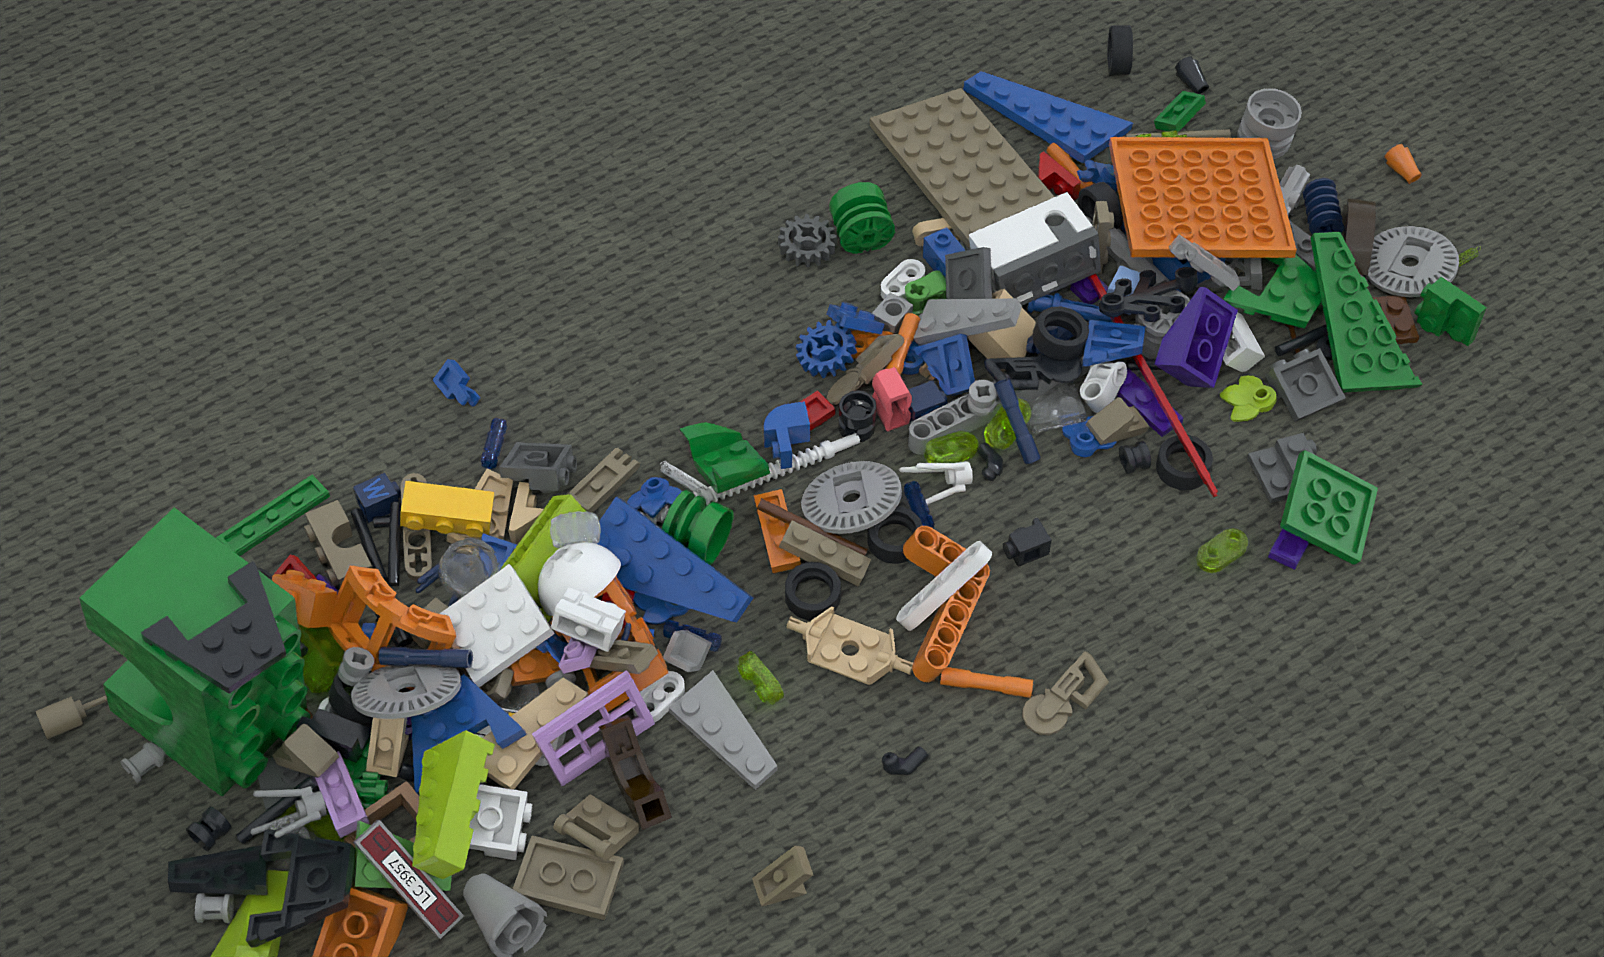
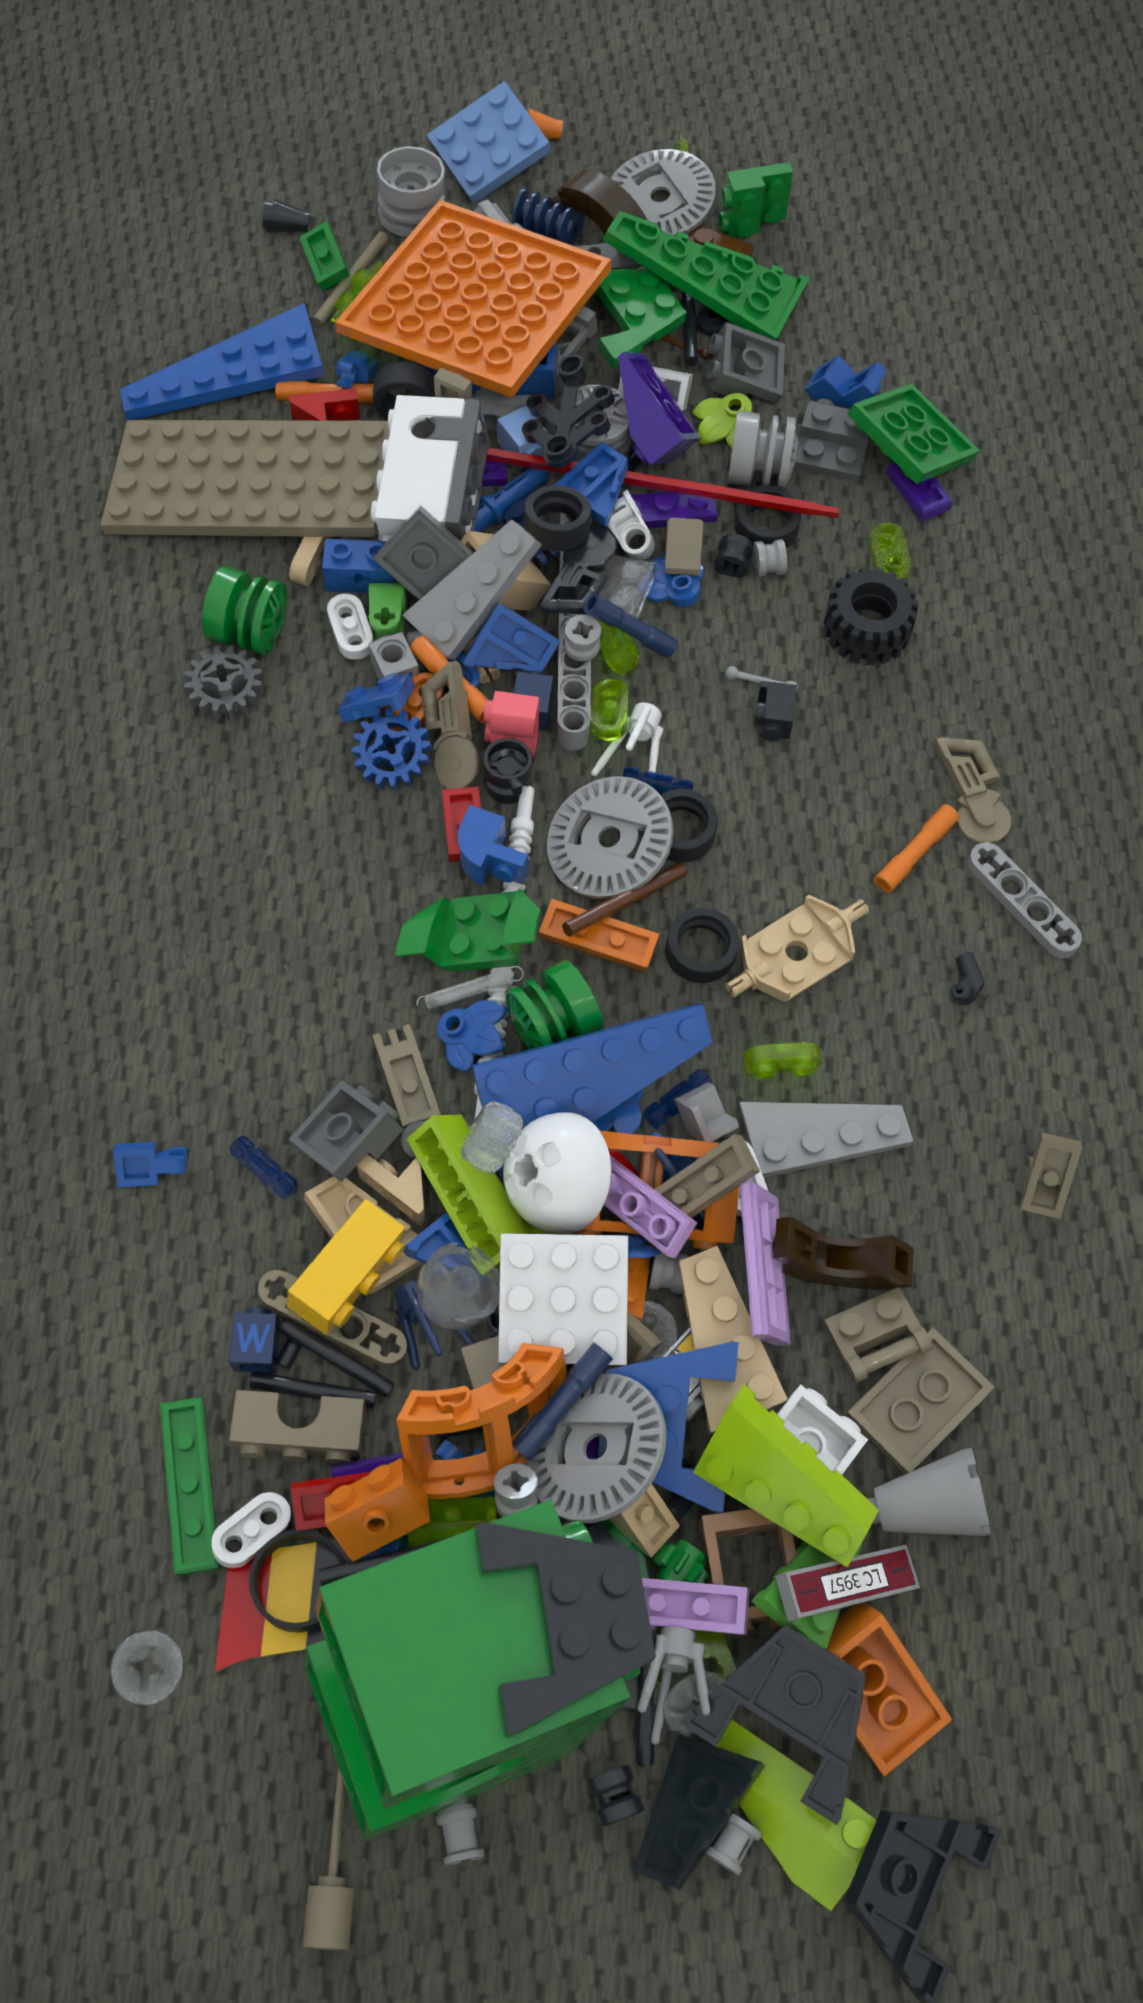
camera: 60 degrees left, 10 degrees up
(263, 554) = (250, 1530): none -> white plate
(588, 619) = (644, 1186): white brick -> none
(818, 548) = (662, 904): dark tan plate -> none
(934, 553) = (817, 818): orange beam -> none
(944, 585) = (804, 813): white beam -> none
(993, 461) = (647, 681): black arm -> none
(996, 768) = (1029, 897): none -> light grey beam
(1043, 507) = (732, 673): none -> light grey hinge
(1120, 50) = (206, 251): black tyre -> none
(1147, 577) = (866, 637): none -> black tyre
(1151, 478) = (770, 558): none -> light grey wheel
(1204, 261) = (568, 340): light grey hinge -> none
(1229, 424) = (762, 450): none -> light grey wheel
(1336, 447) = (841, 384): none -> blue brick
(1358, 143) = (489, 142): none -> medium blue plate

